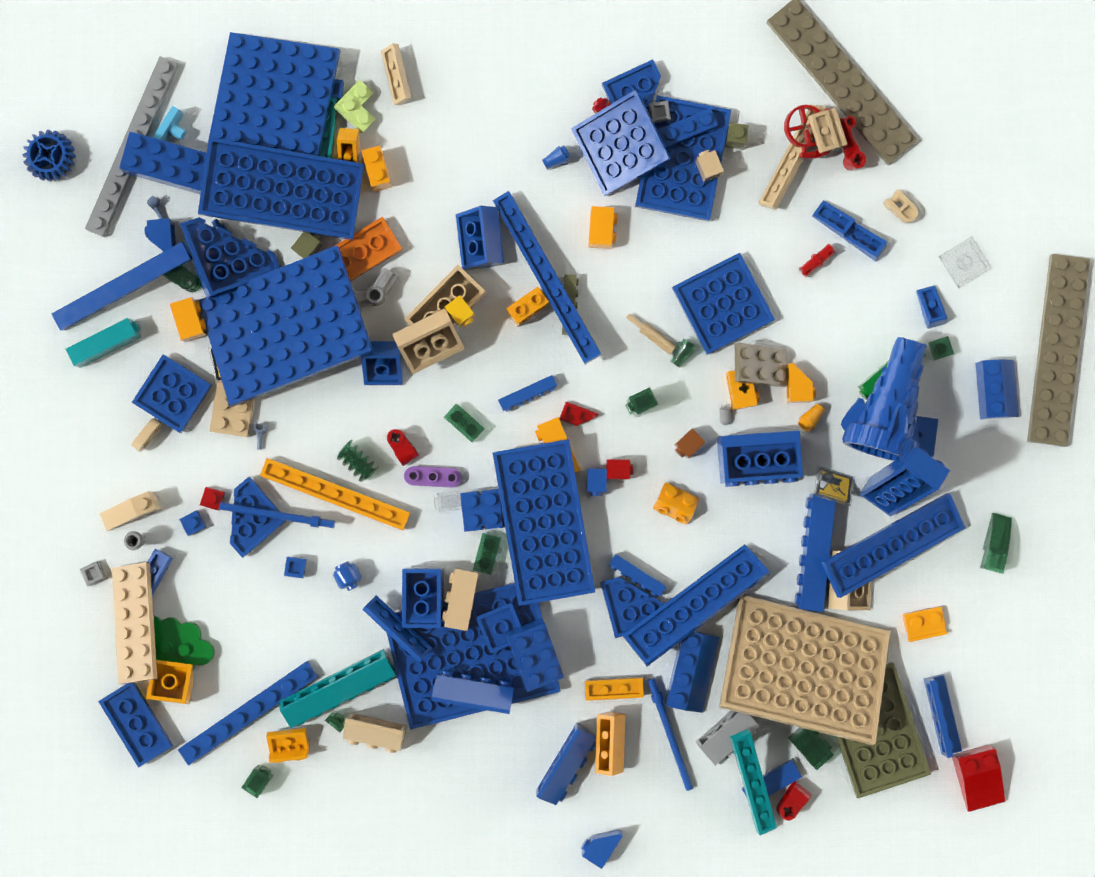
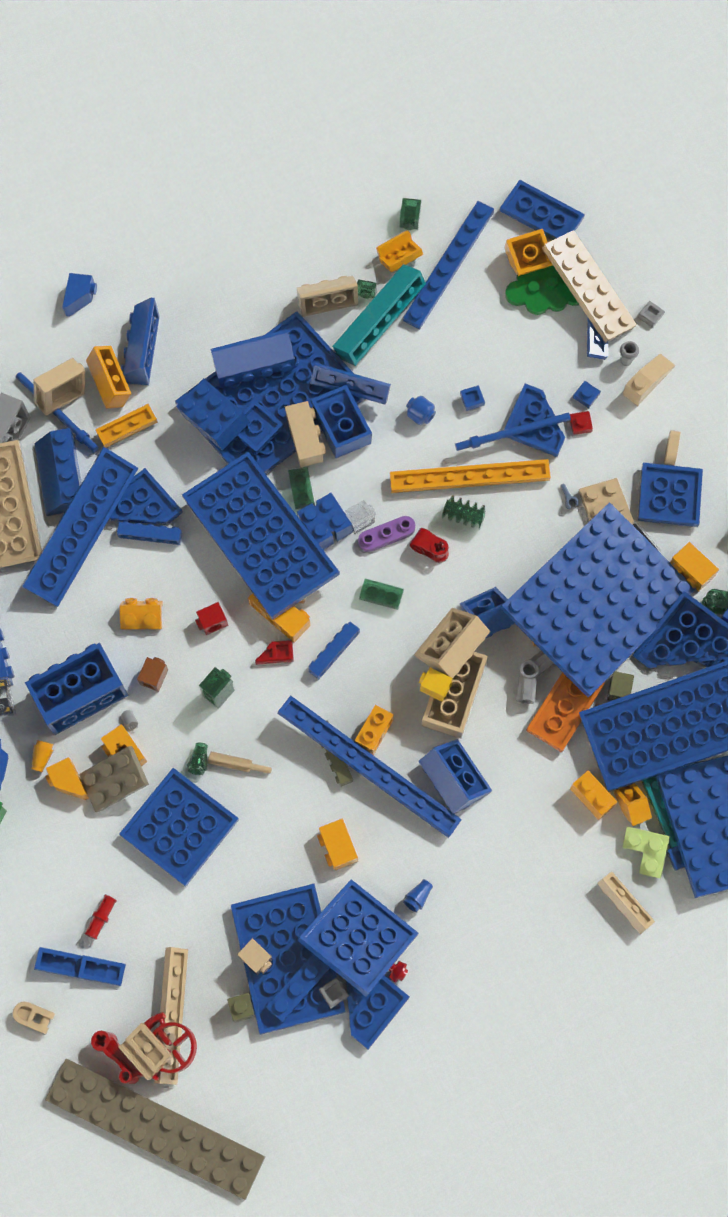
camera: 160 degrees right, 15 degrees down
(596, 481) = (228, 598): blue brick -> none
(658, 751) = (59, 386): none -> tan window

